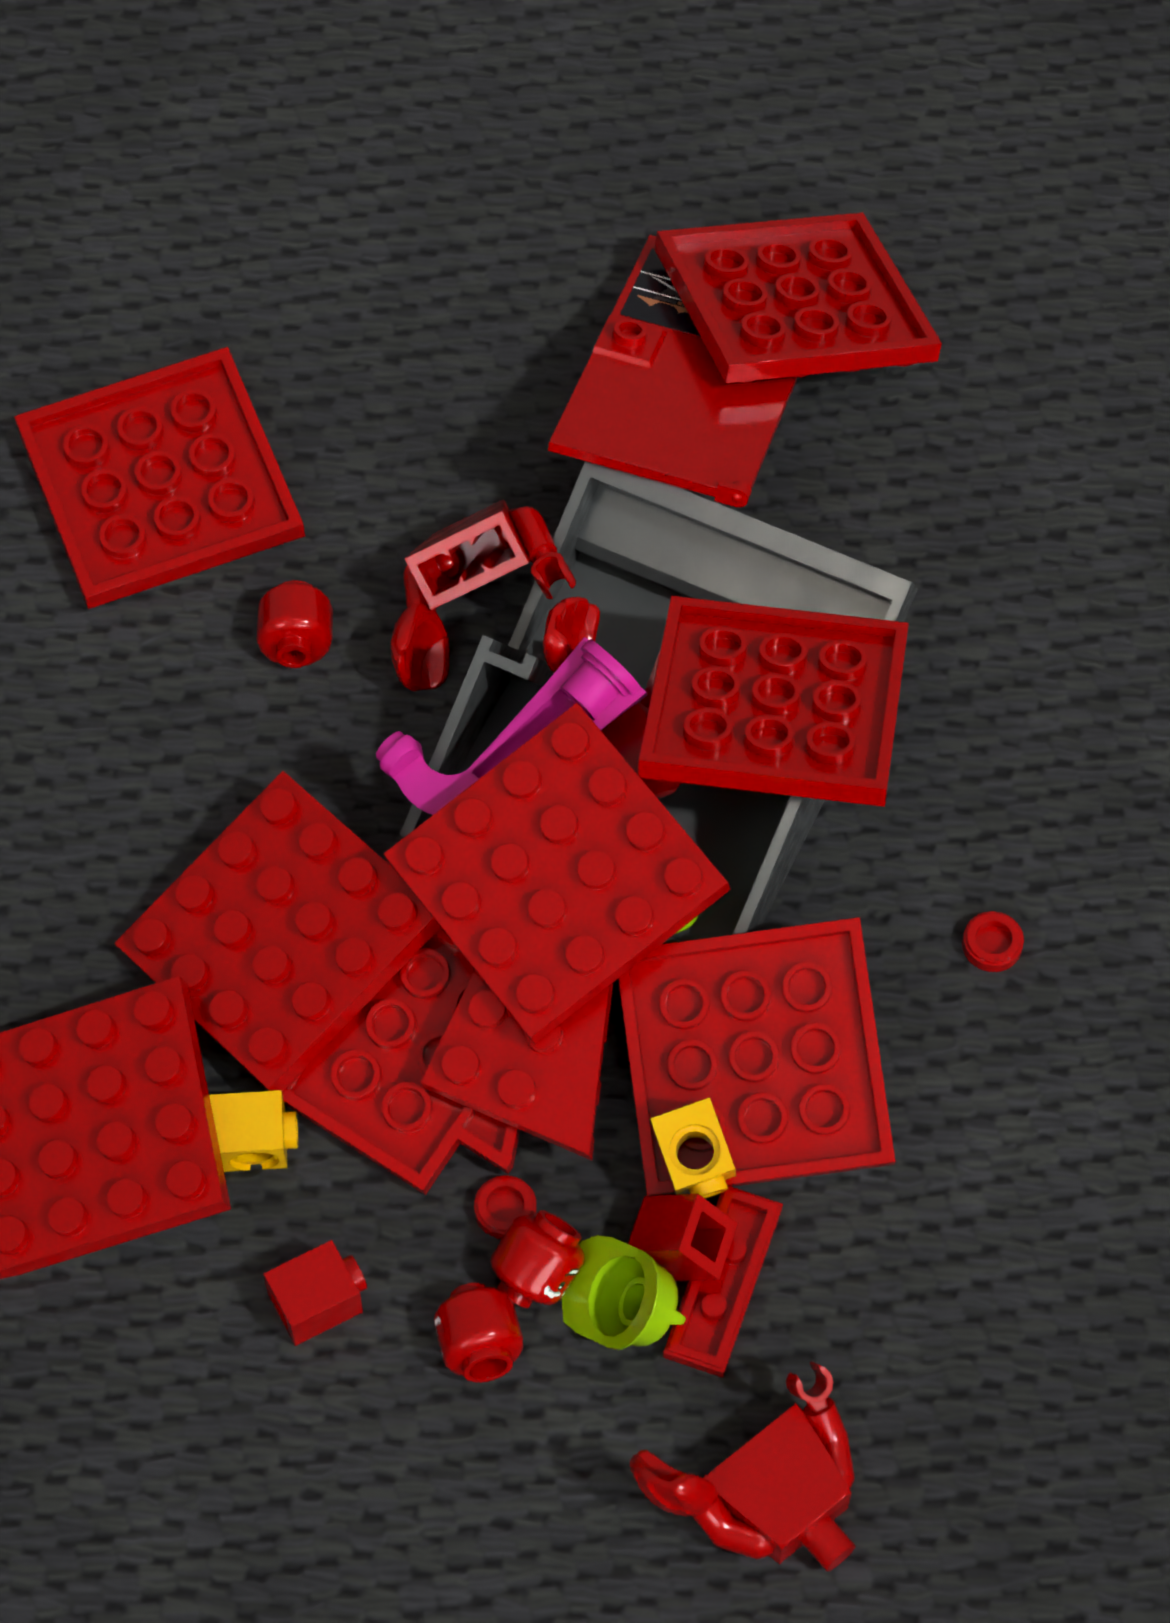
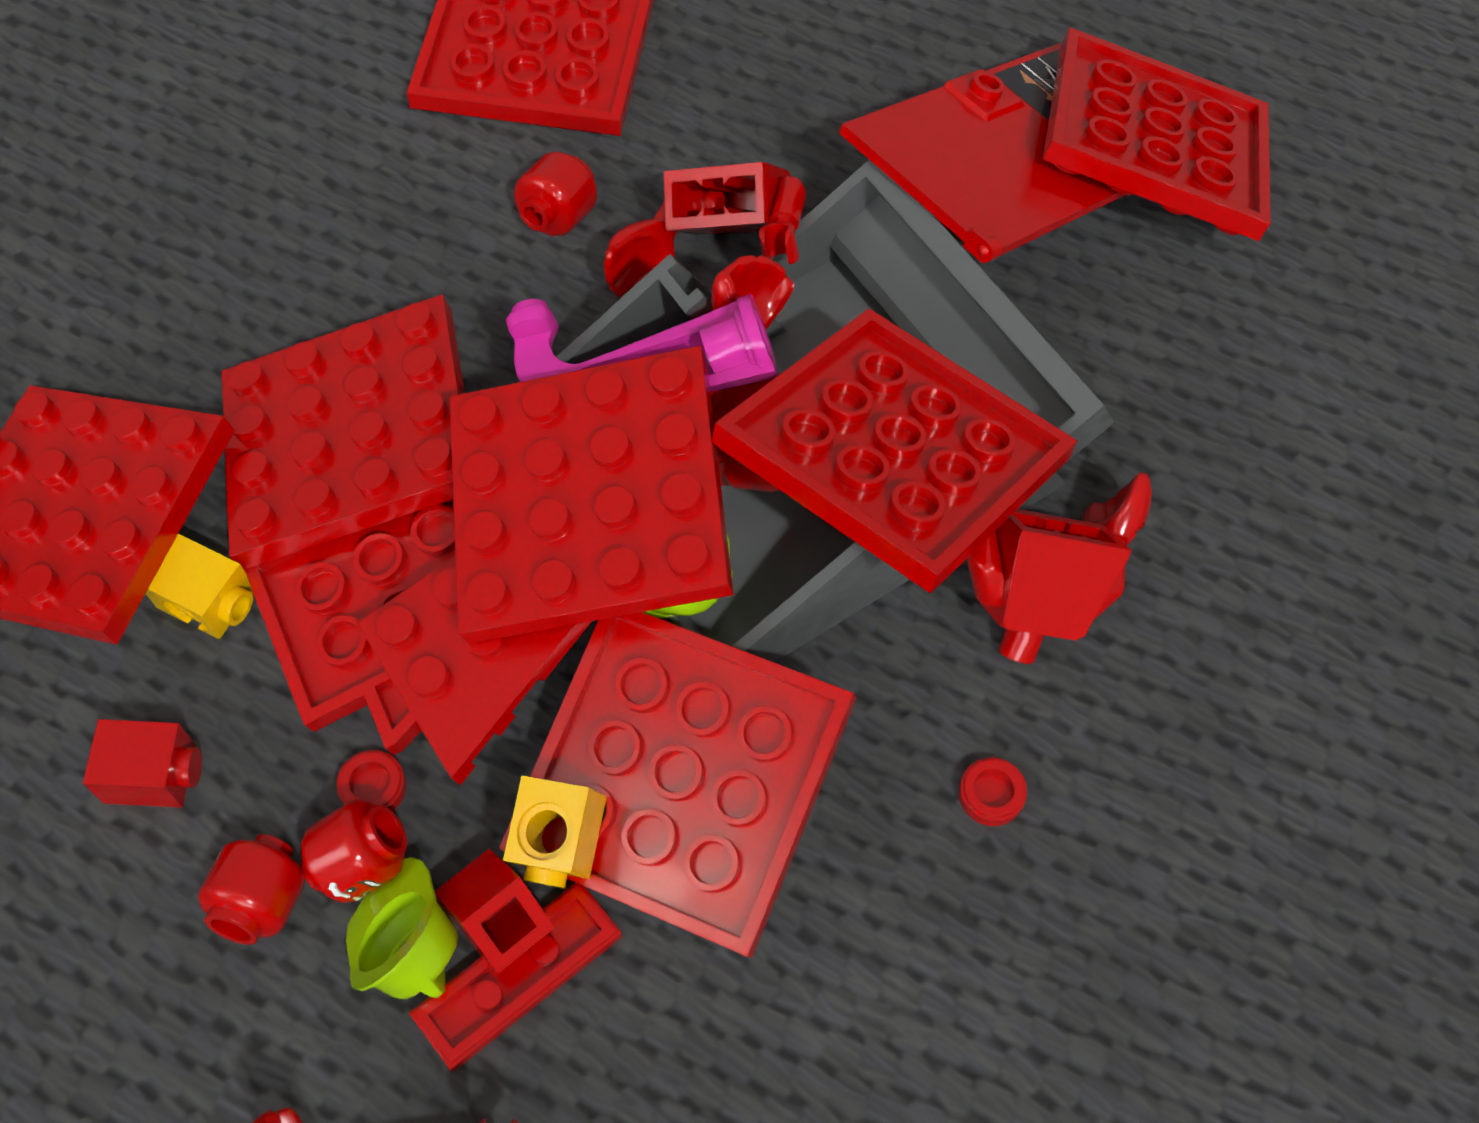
camera: 30 degrees right, 0 degrees up
(949, 732) = (1057, 572): none -> red torso

